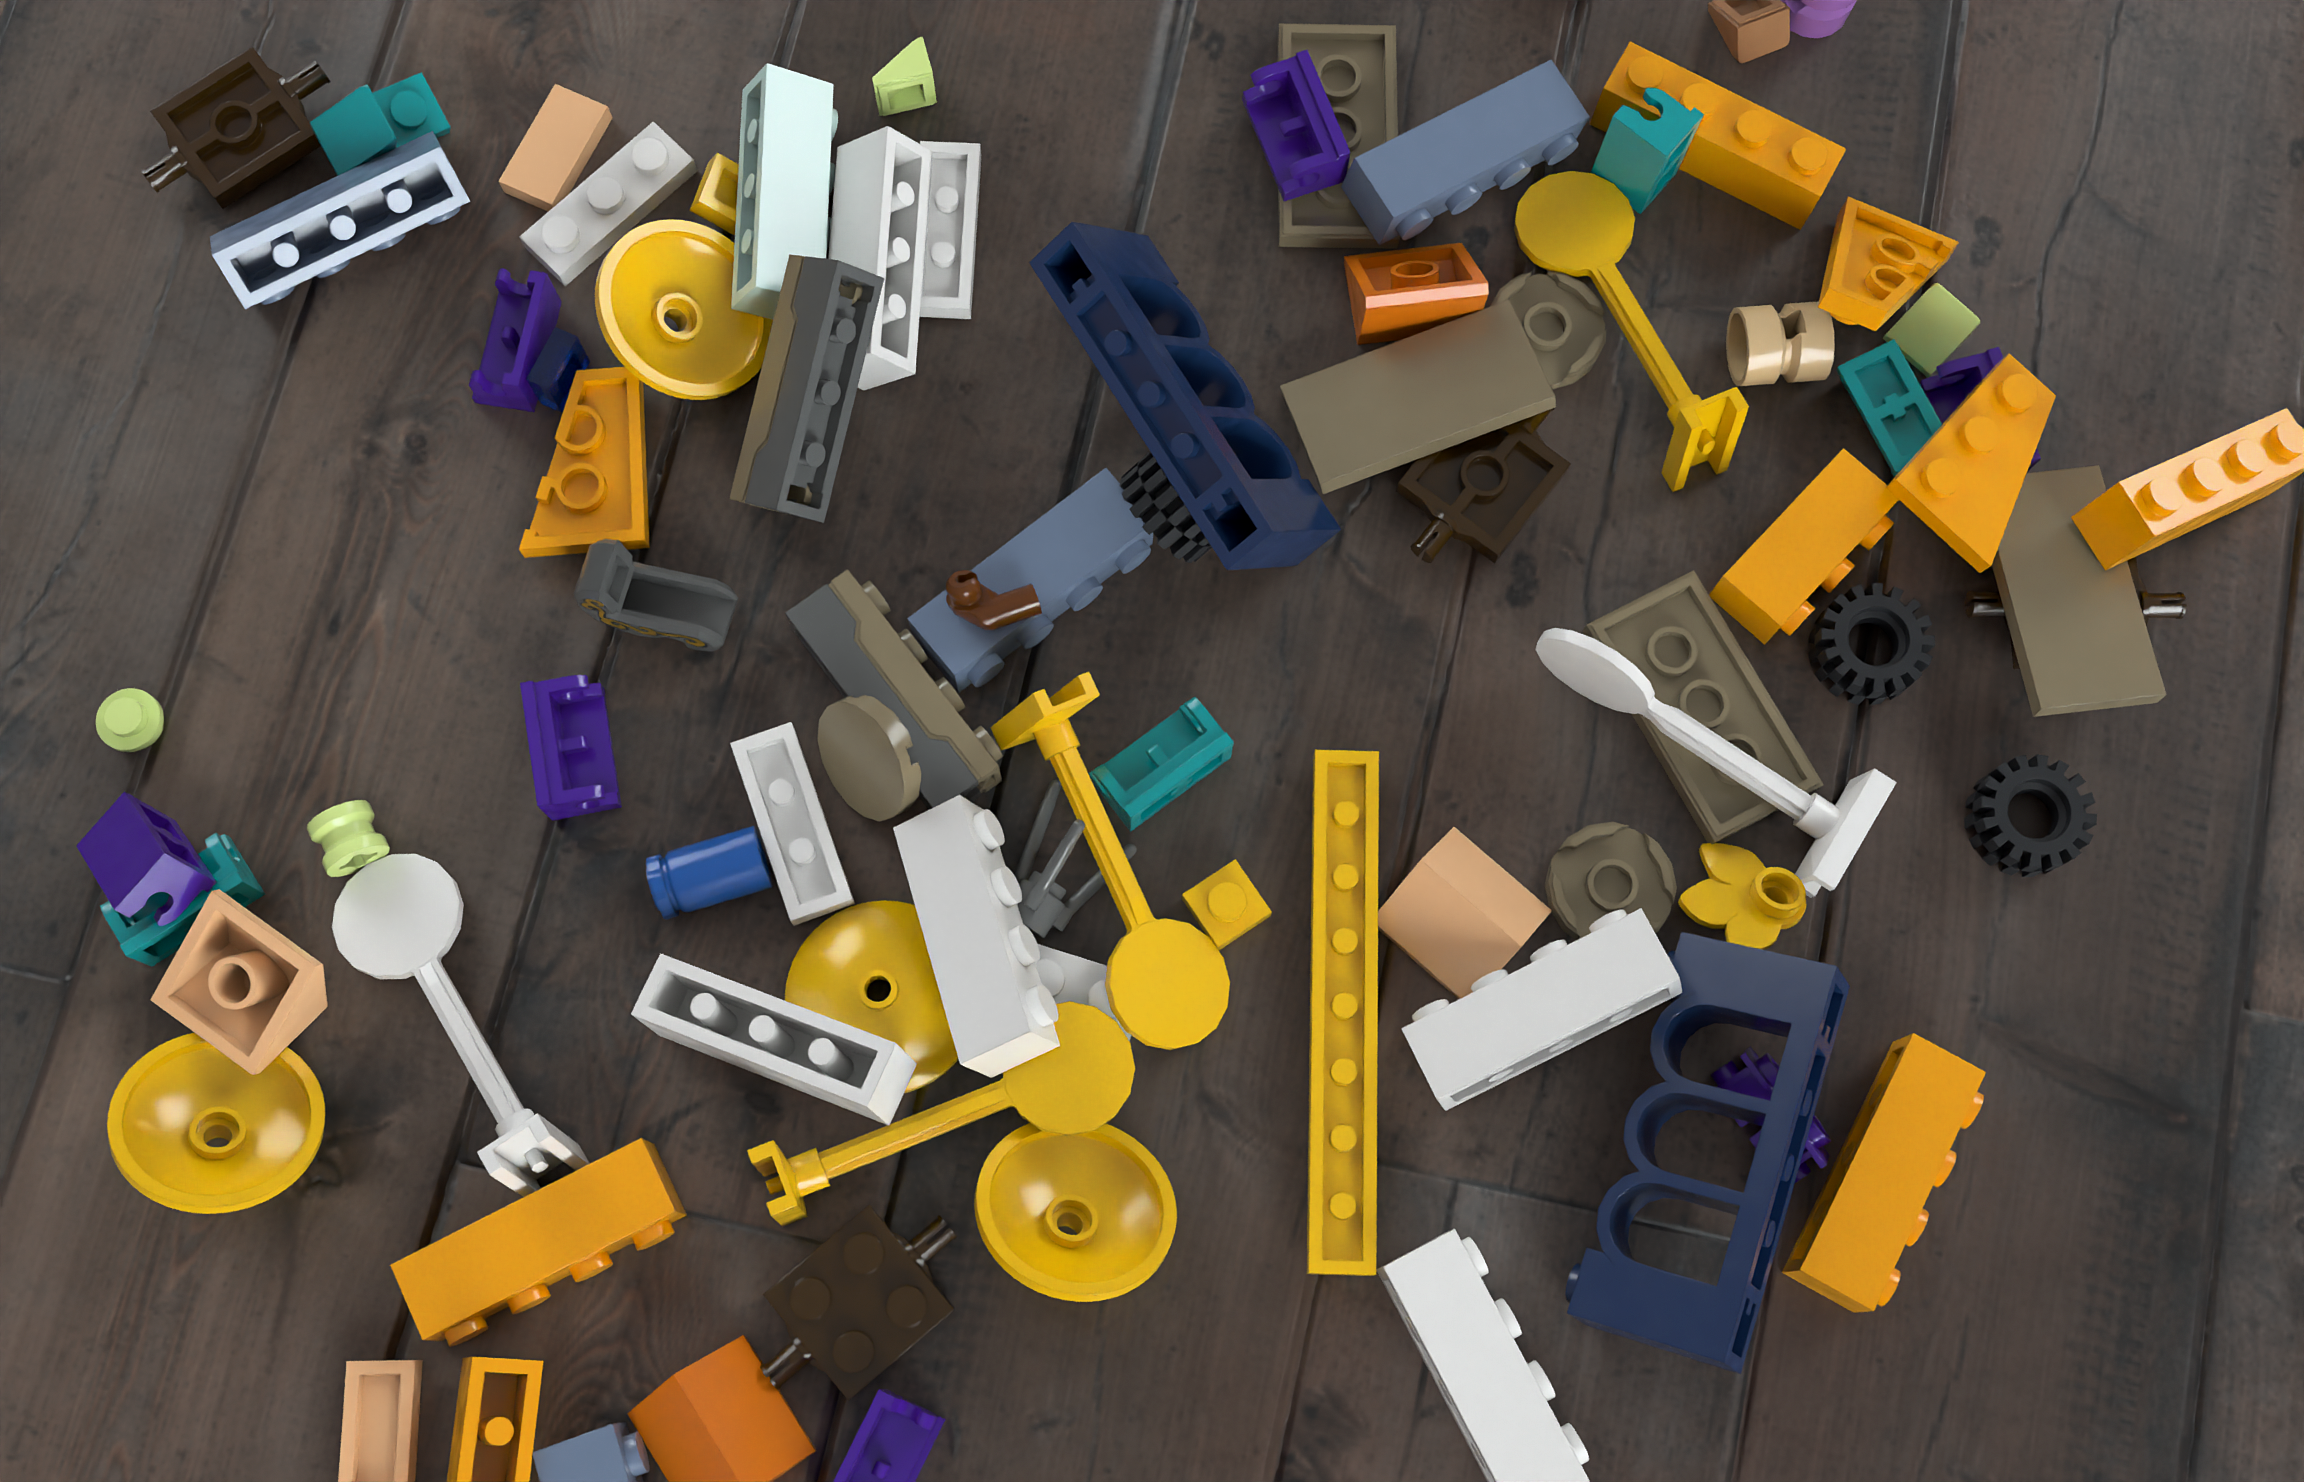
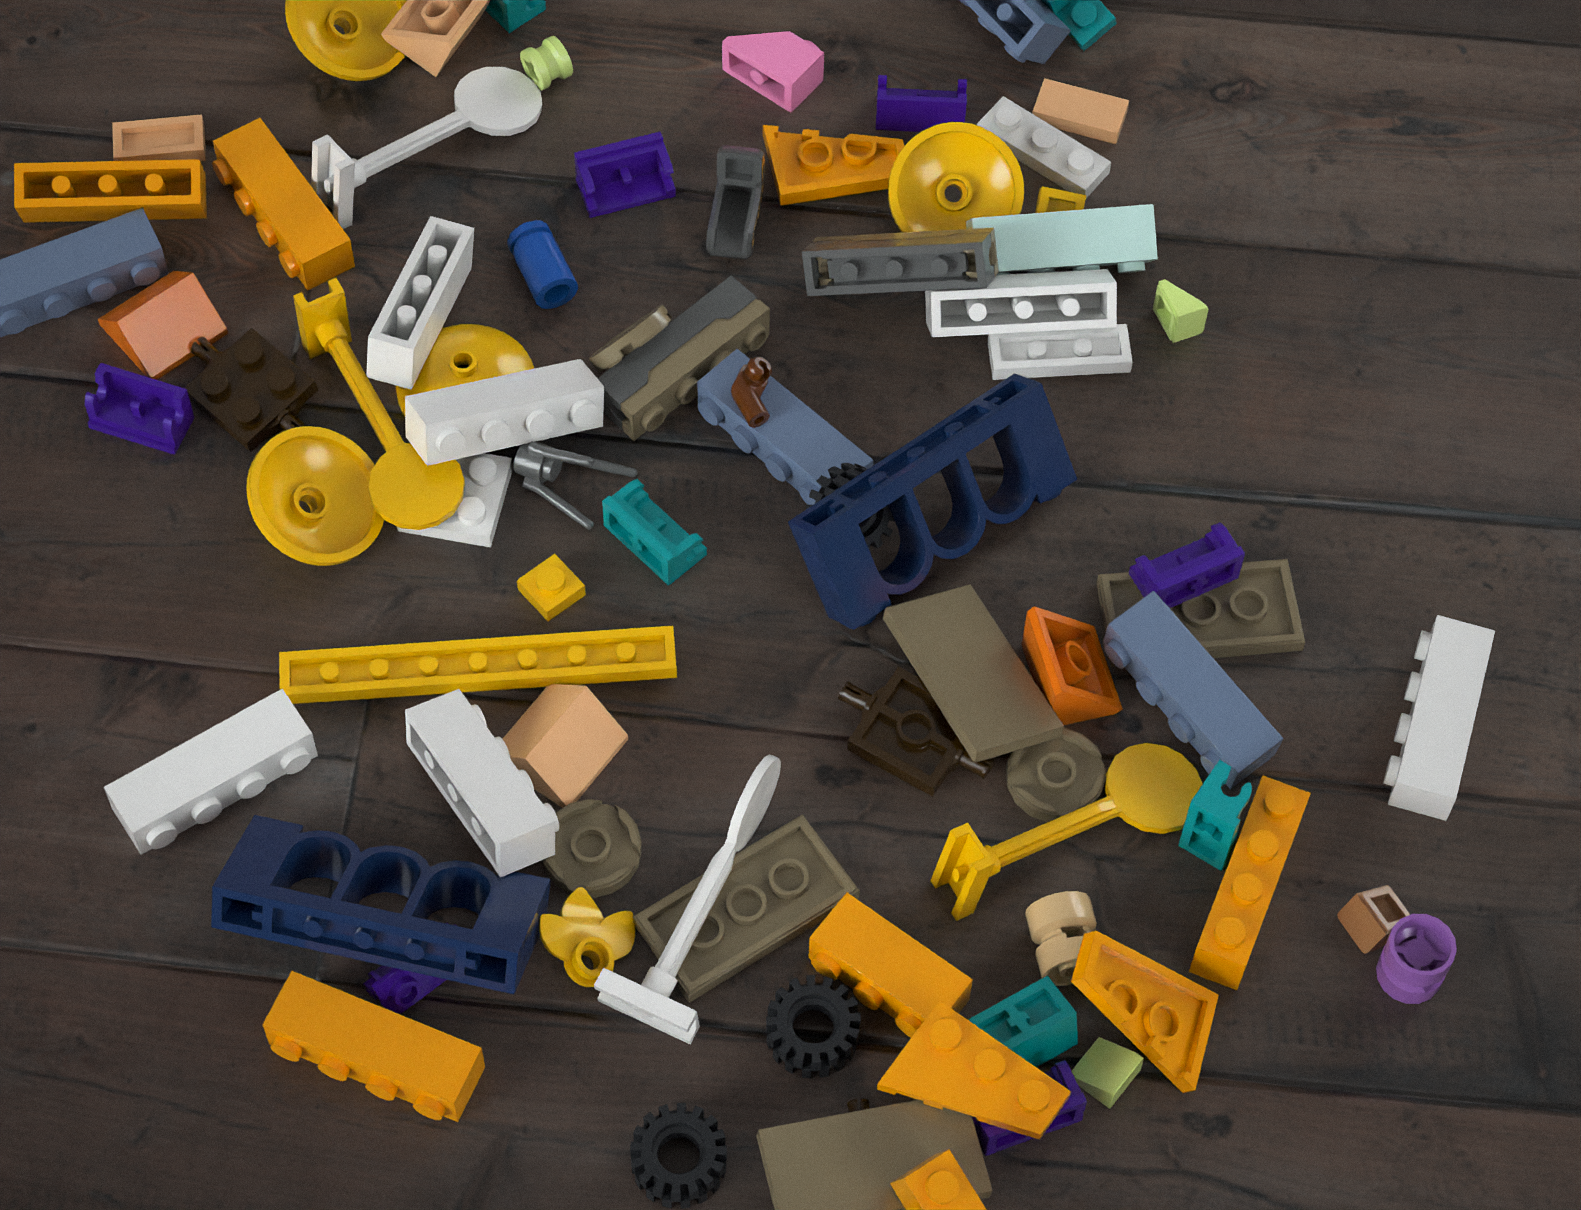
camera: 85 degrees right, 15 degrees down
(413, 522) = (775, 65): none -> bright pink slope
(556, 368) = (901, 123): clear blue tile -> none
(792, 823) = (583, 310): white plate -> none
(1164, 974) = (492, 545): yellow piece -> none

